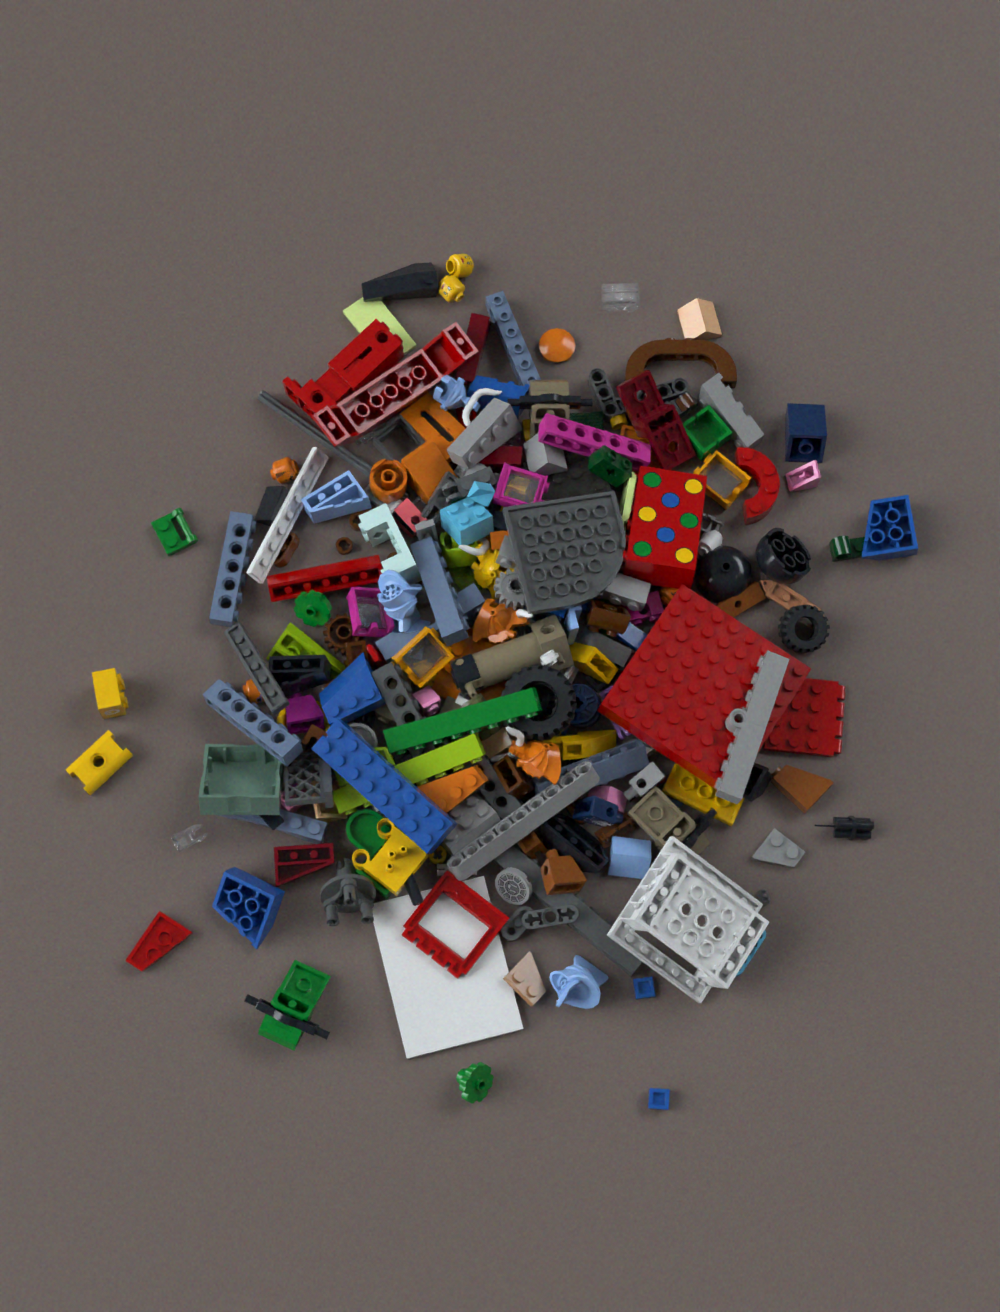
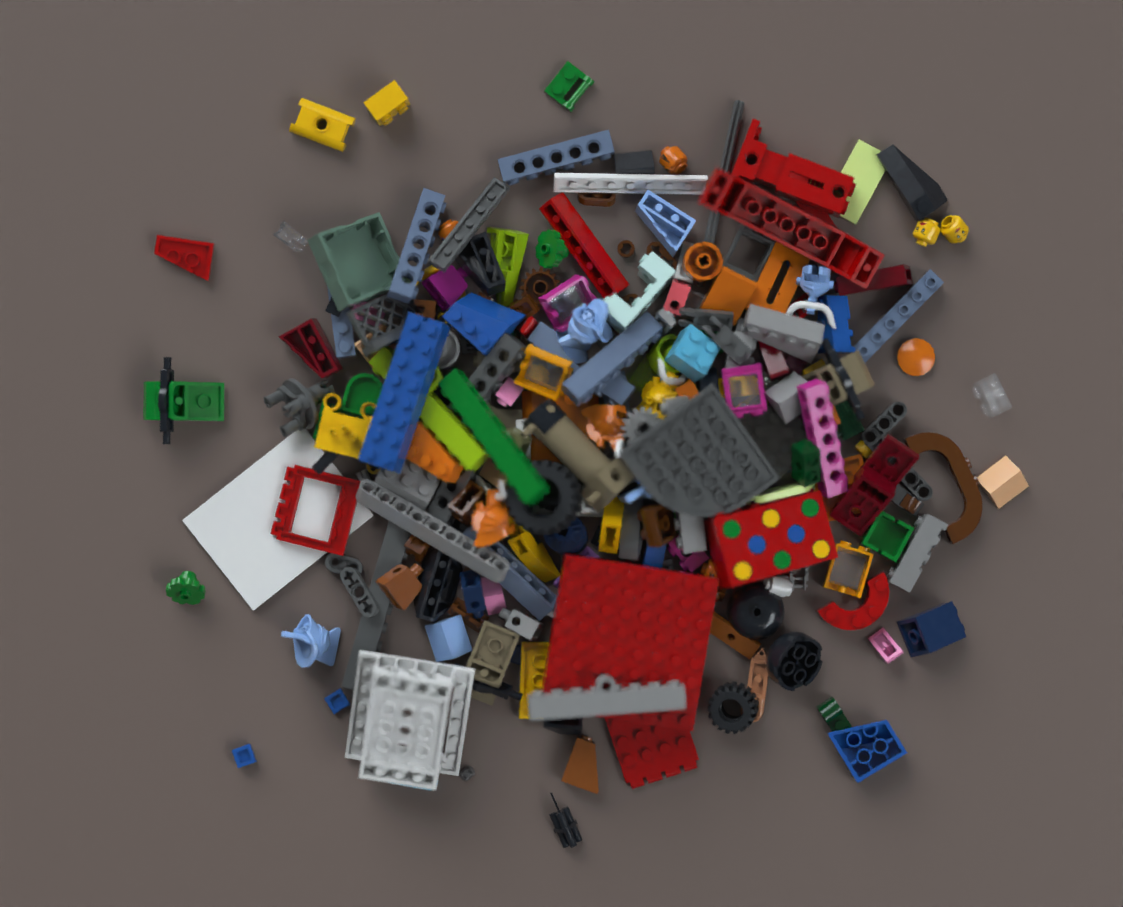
camera: 70 degrees right, 15 degrees up
(248, 904) = (254, 318): blue wedge -> none
(481, 493) = (722, 356): medium azure slope -> none
(513, 886) = (373, 546): light grey tile -> none
(526, 979) = (297, 594): medium nougat wing -> none
(549, 658) = (587, 489): white plate -> none
(779, 850) = (515, 769): light grey wing -> none

